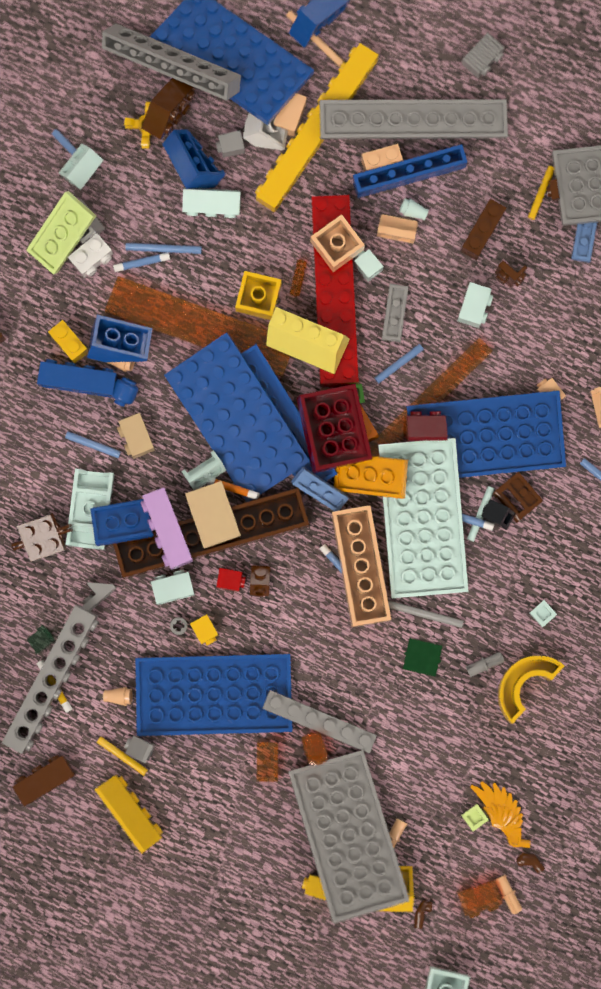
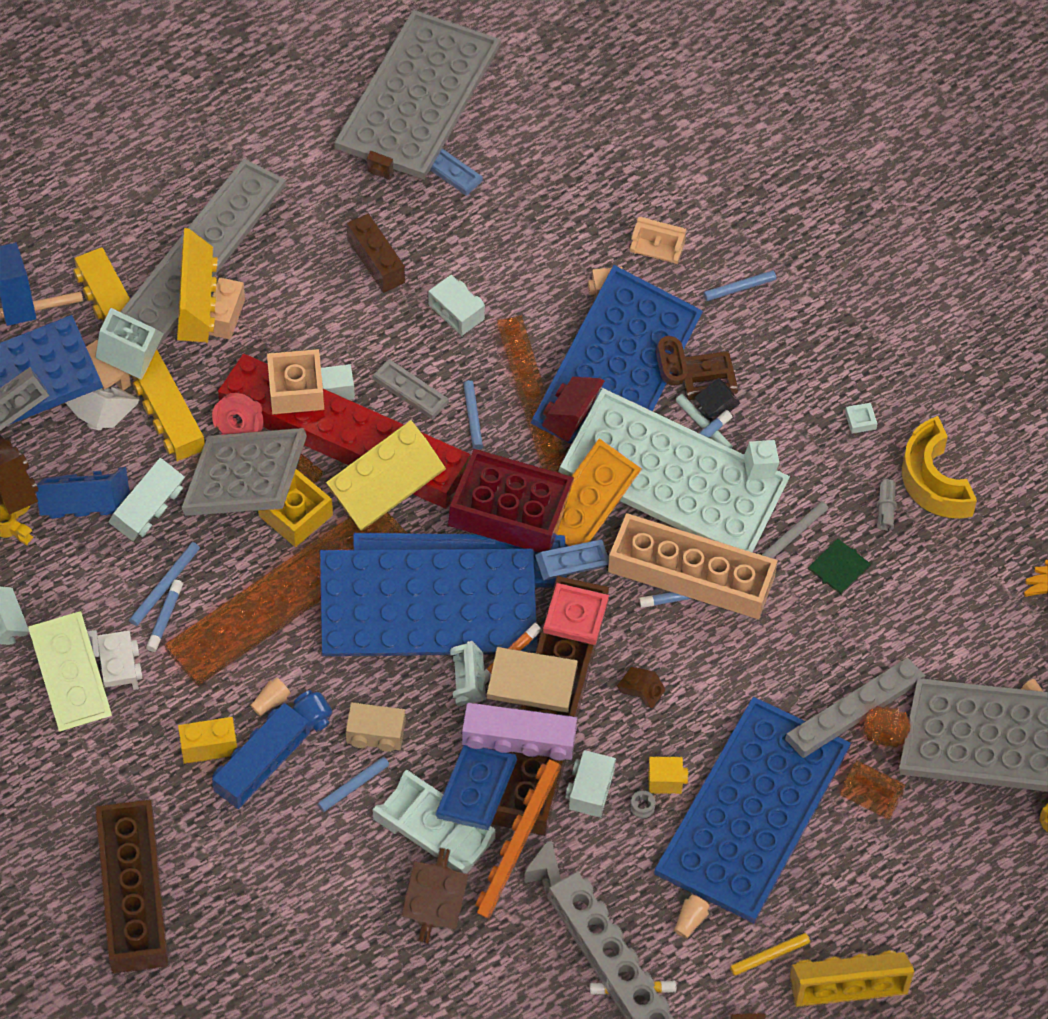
camera: 60 degrees left, 25 degrees down
(41, 639) = (563, 968): clear green panel -> none
(92, 567) = (512, 849): none -> orange plate
(118, 341) = (245, 682): blue slope -> none
(139, 749) = (775, 919): light grey slope -> none
(230, 144) = (93, 447): light grey brick -> none
(230, 580) = (621, 716): red brick -> none
(261, 250) = (244, 472): none -> light grey plate
(273, 515) = (576, 614): none -> coral plate
(301, 221) = (242, 405): none -> coral plate
(307, 120) = (127, 343): none -> light aqua slope
(371, 136) = (196, 289): none -> yellow slope
(397, 228) = (316, 334): light nougat panel -> none
(409, 171) = (257, 287): blue brick -> none
(413, 209) = (302, 310): light aqua cone -> none
(462, 568) = (761, 459): none -> light aqua brick
(483, 55) = (177, 157): light grey brick -> none
(509, 276) = (446, 249): reddish brown bracket -> none
(509, 469) = (671, 362): none -> reddish brown plate
(541, 192) = (371, 184): yellow bar -> none

